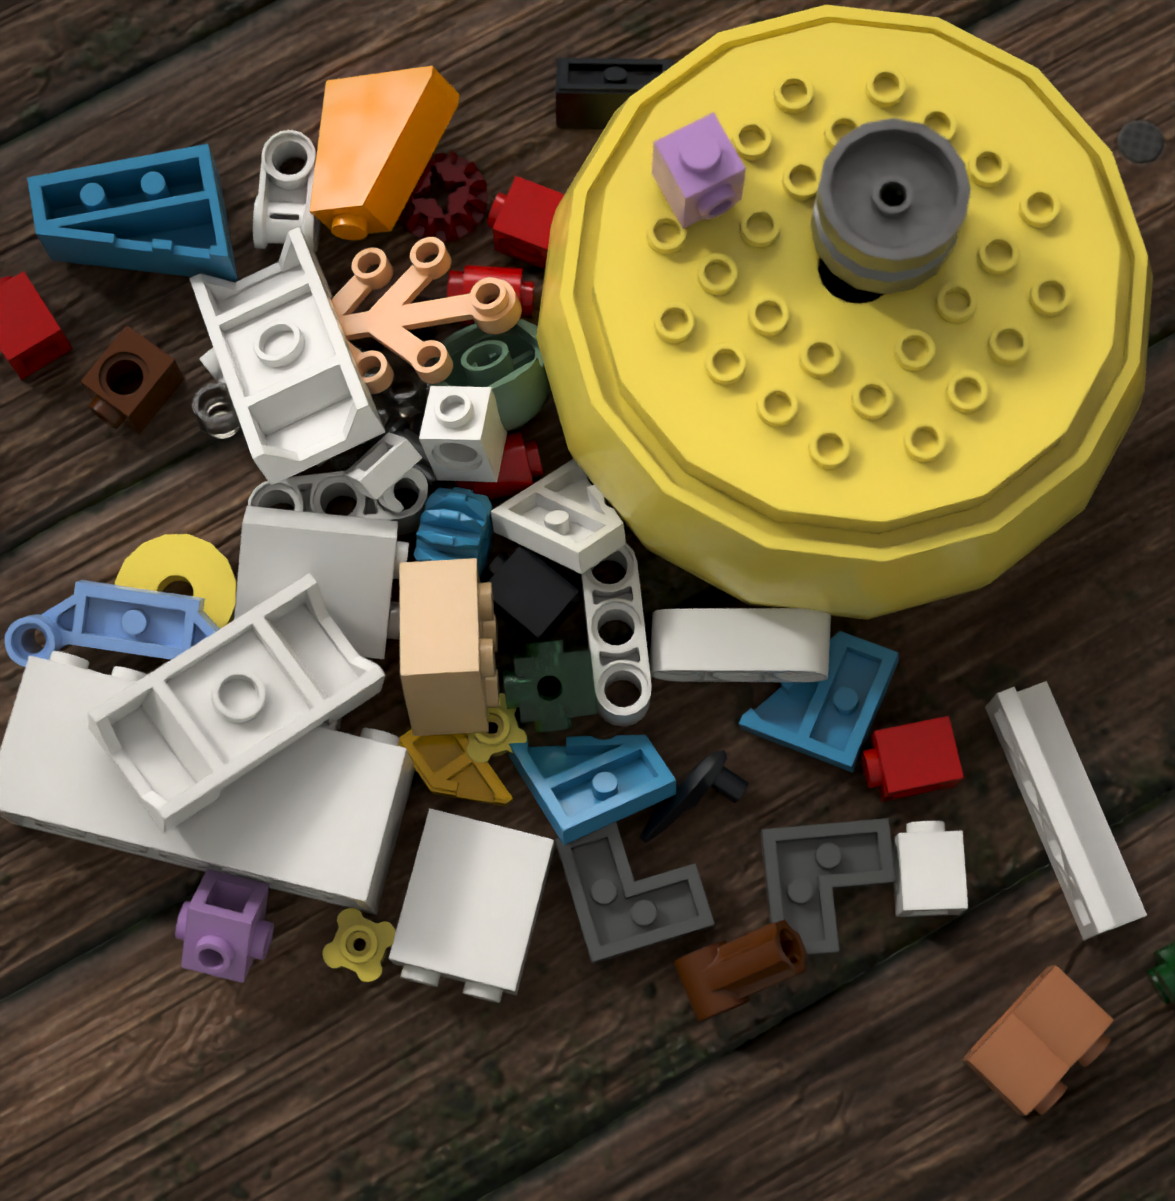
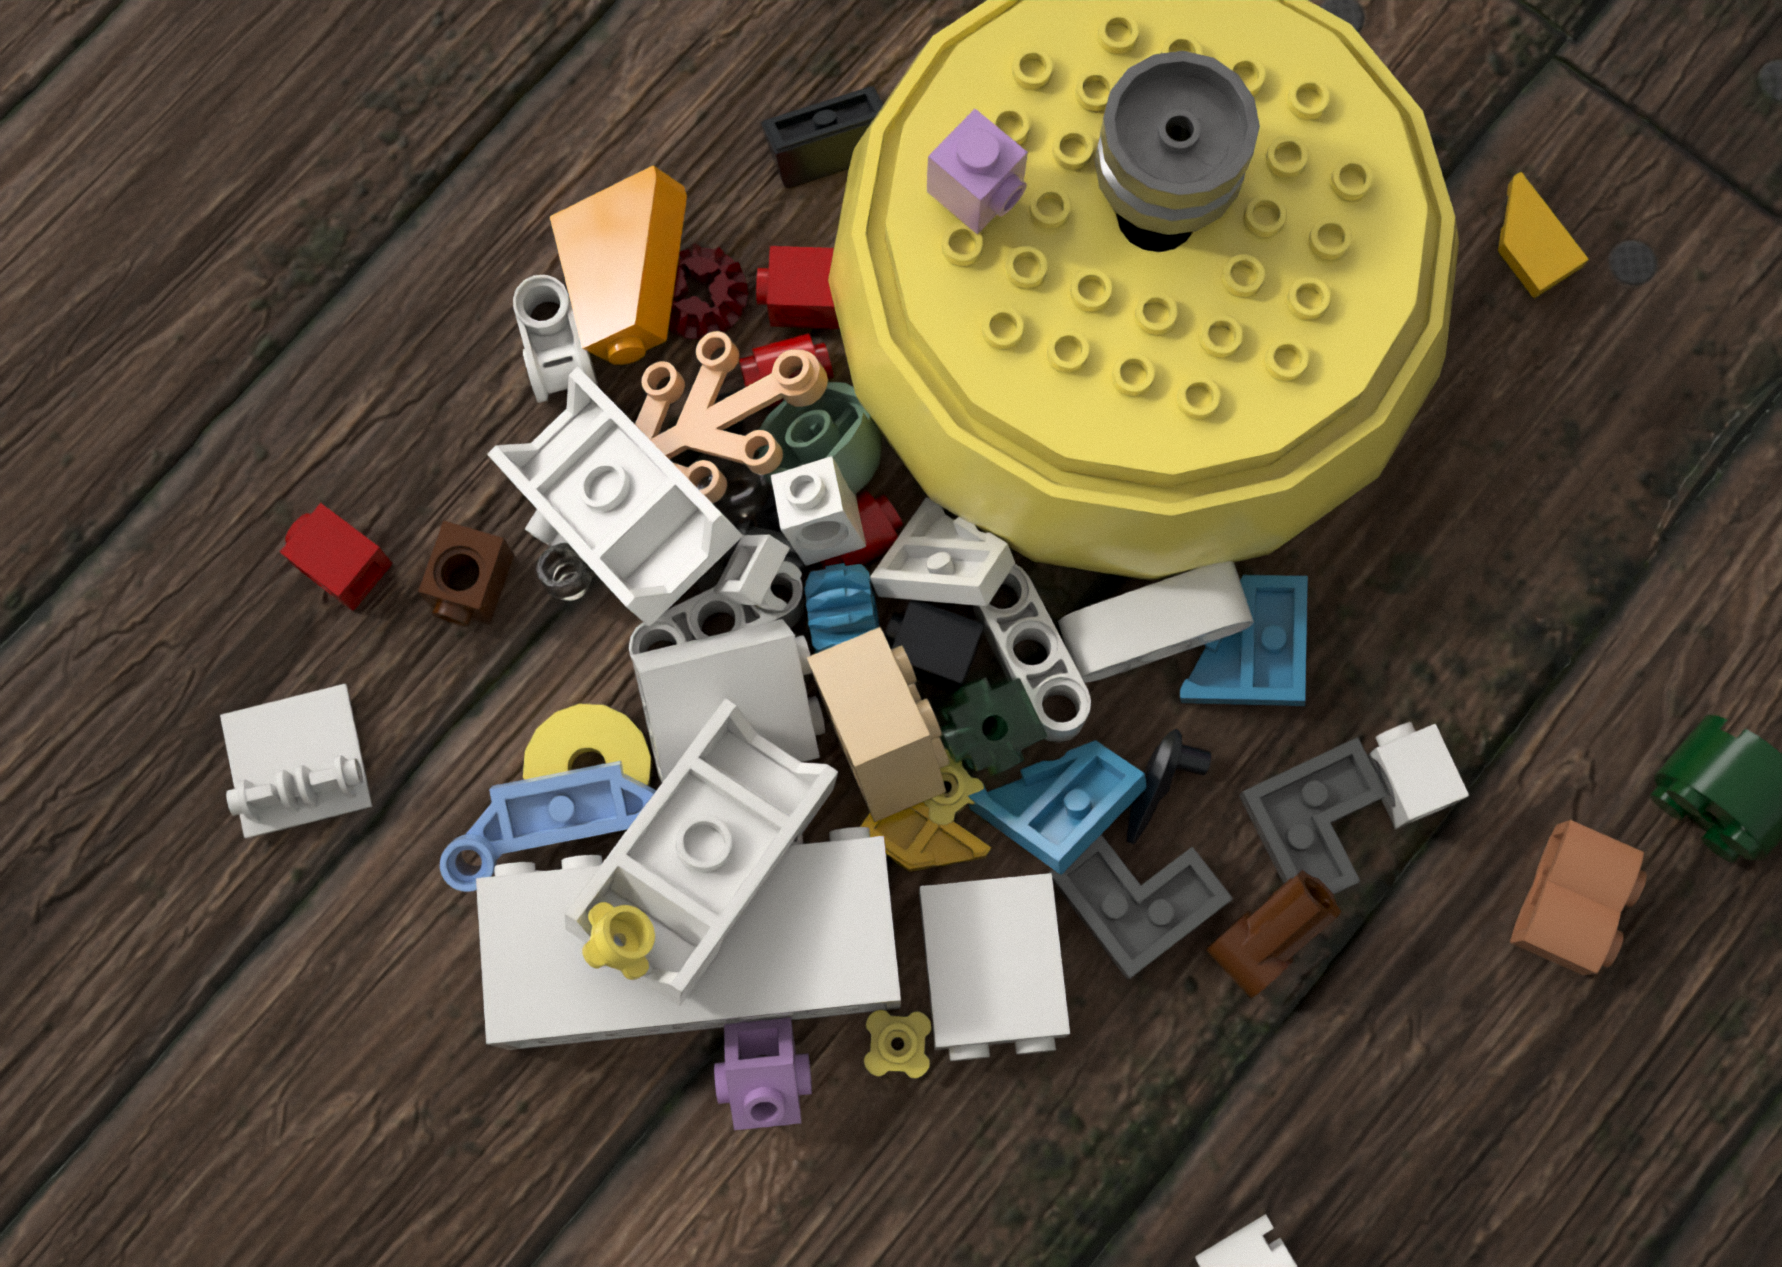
camera: 20 degrees left, 0 degrees up
(138, 214) = (412, 409): dark azure wedge -> none
(143, 746) = (631, 928): none -> light yellow plate
(912, 759) = (1358, 673): red brick -> none
(1065, 809) = (1517, 671): white fence -> none

